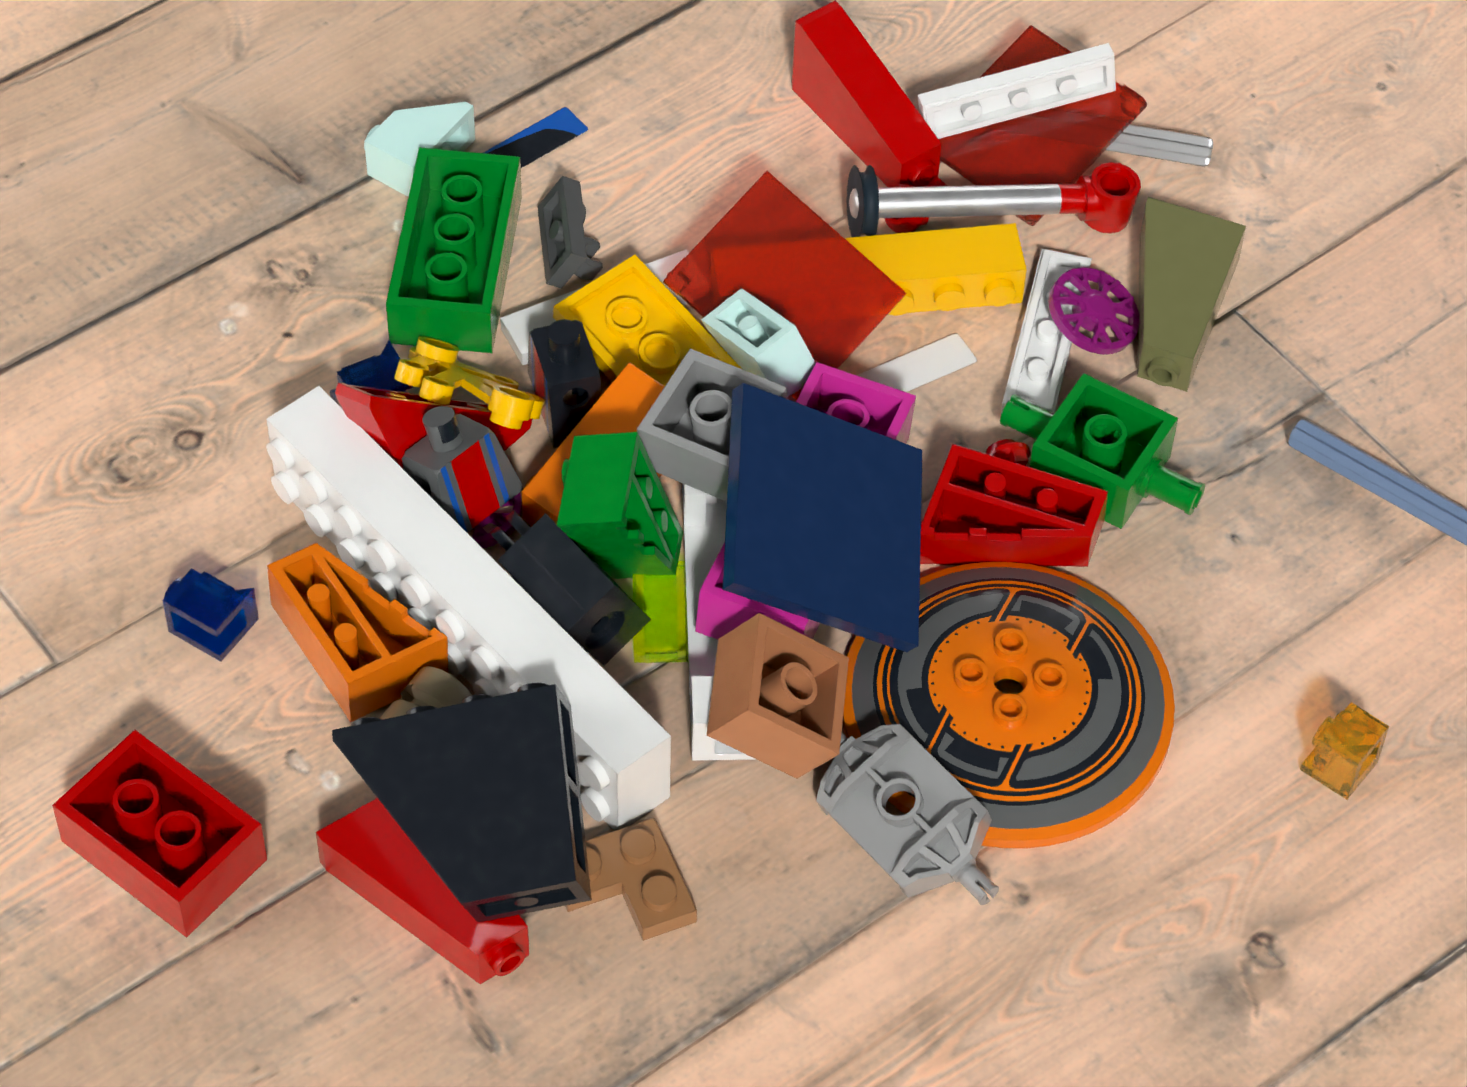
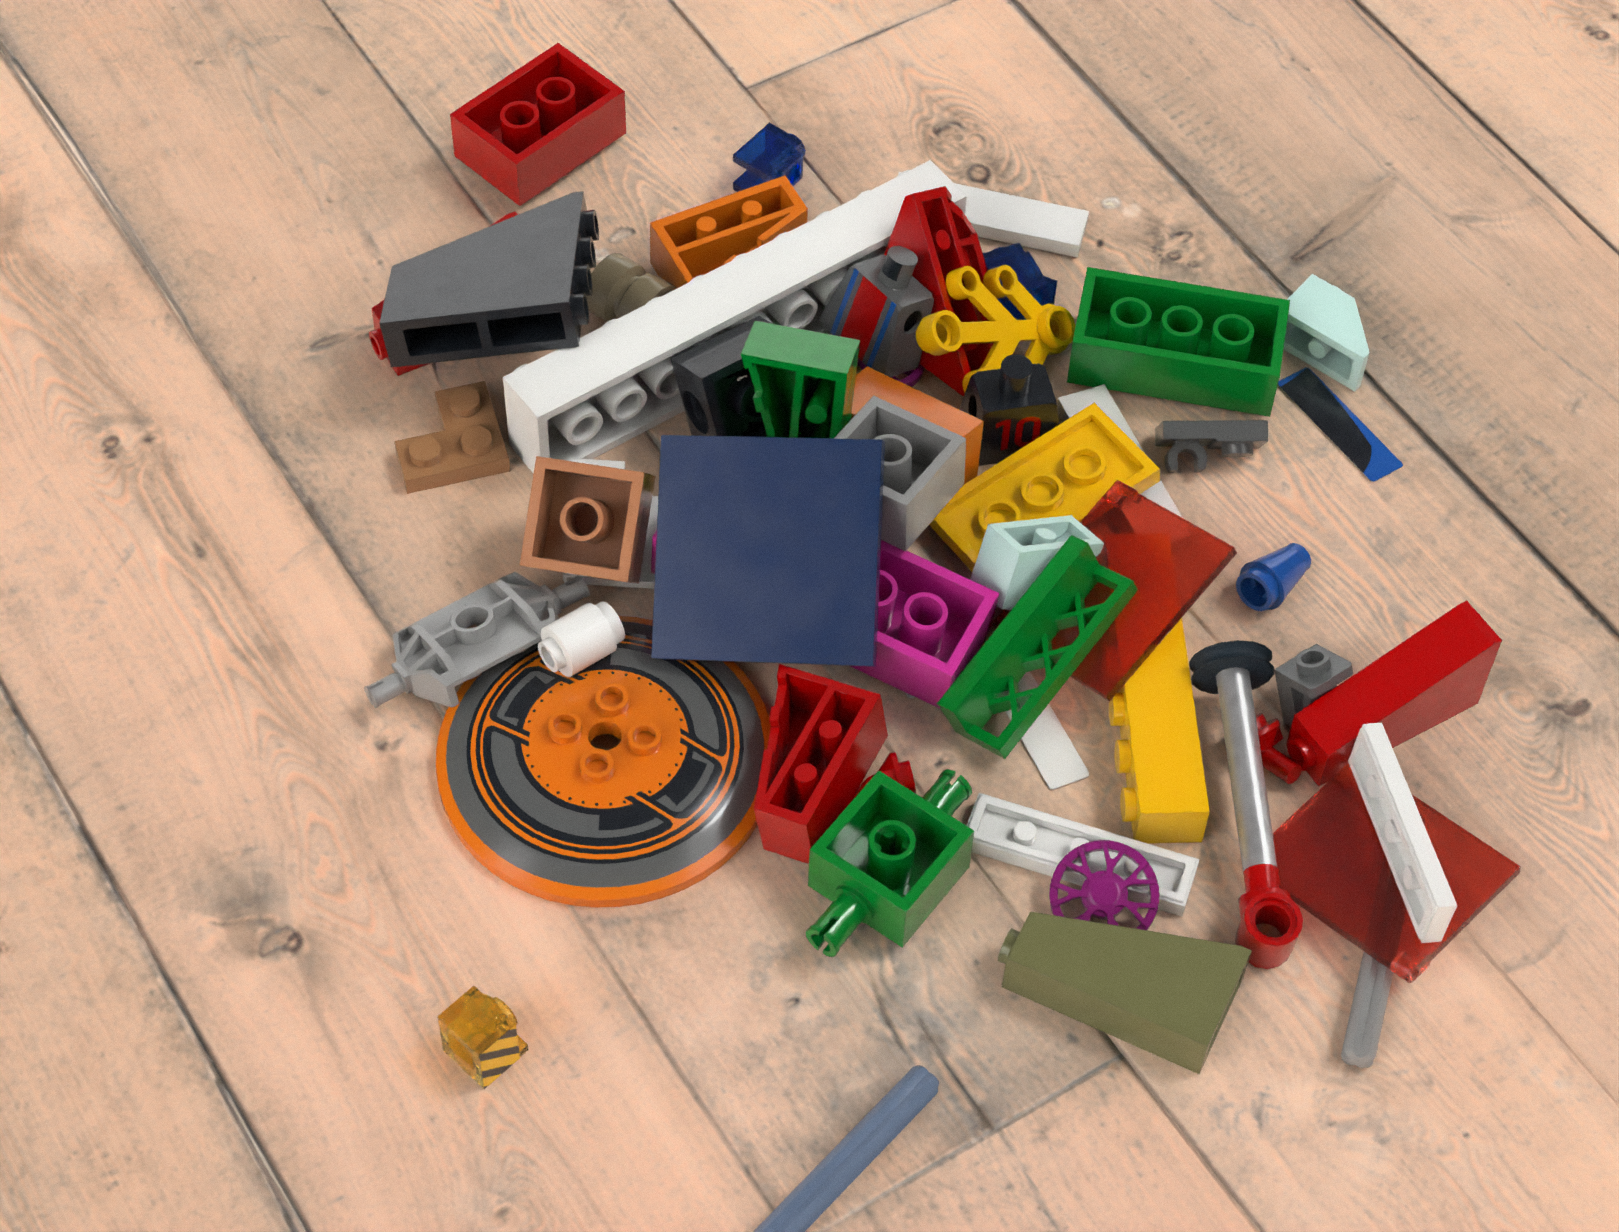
camera: 95 degrees right, 0 degrees up
(270, 385) = (1025, 221): none -> white tile
(717, 187) = (1272, 577): none -> blue cone
(853, 353) = (1016, 647): none -> green fence
(859, 144) = (1308, 678): none -> dark grey bracket
(913, 699) = (580, 638): none -> white brick

